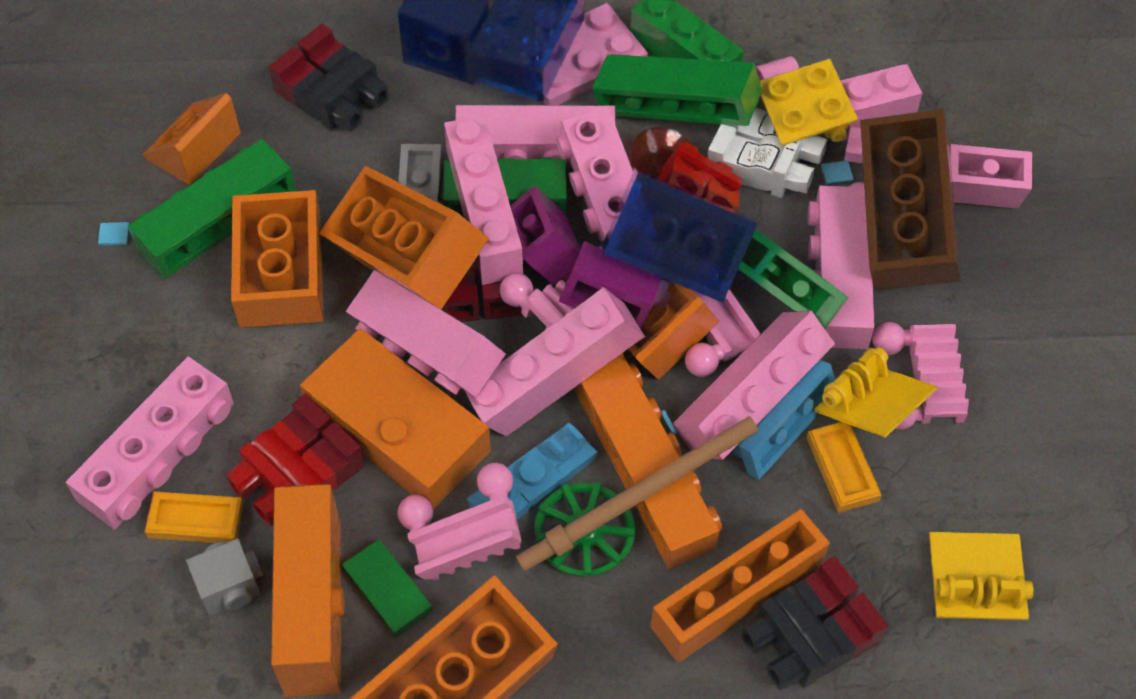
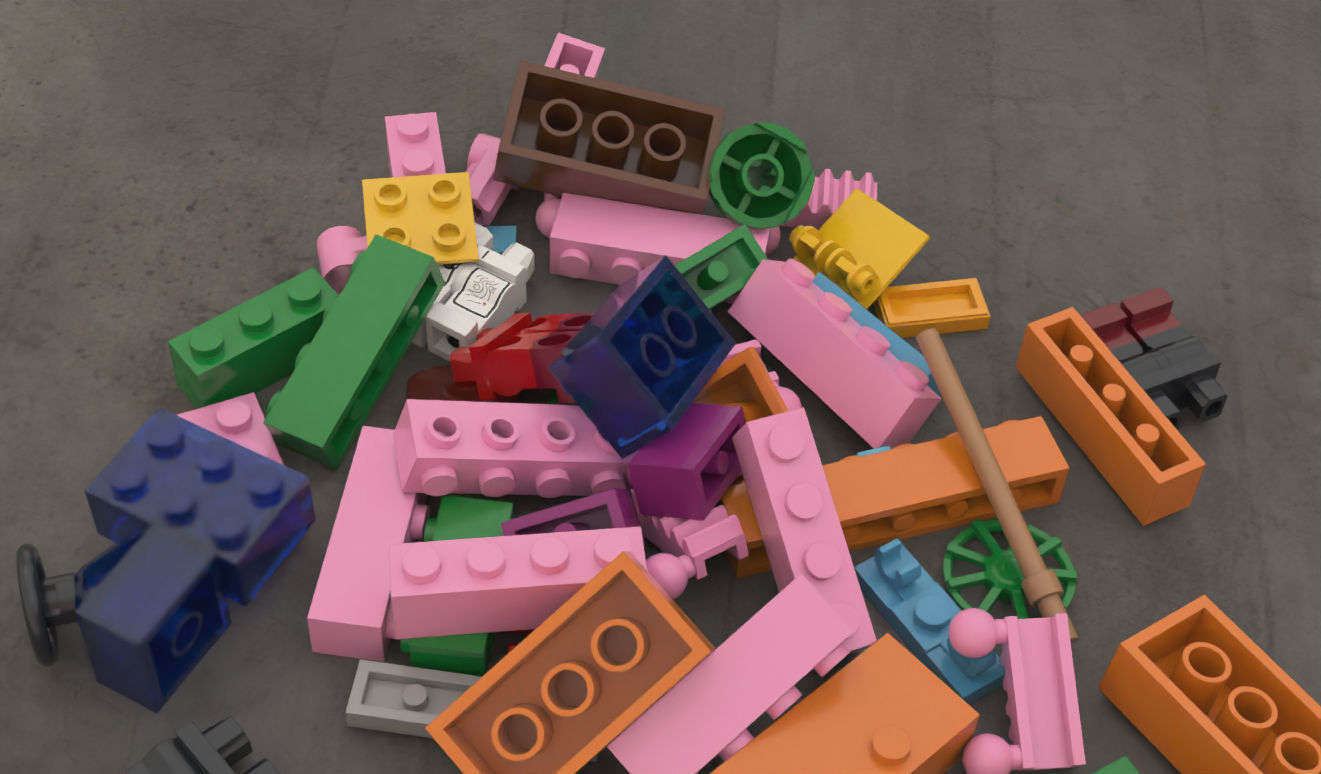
camera: 85 degrees left, 10 degrees down
(906, 302) = (760, 175): none -> green cylinder
(979, 576) = (1077, 218): yellow hinge -> none

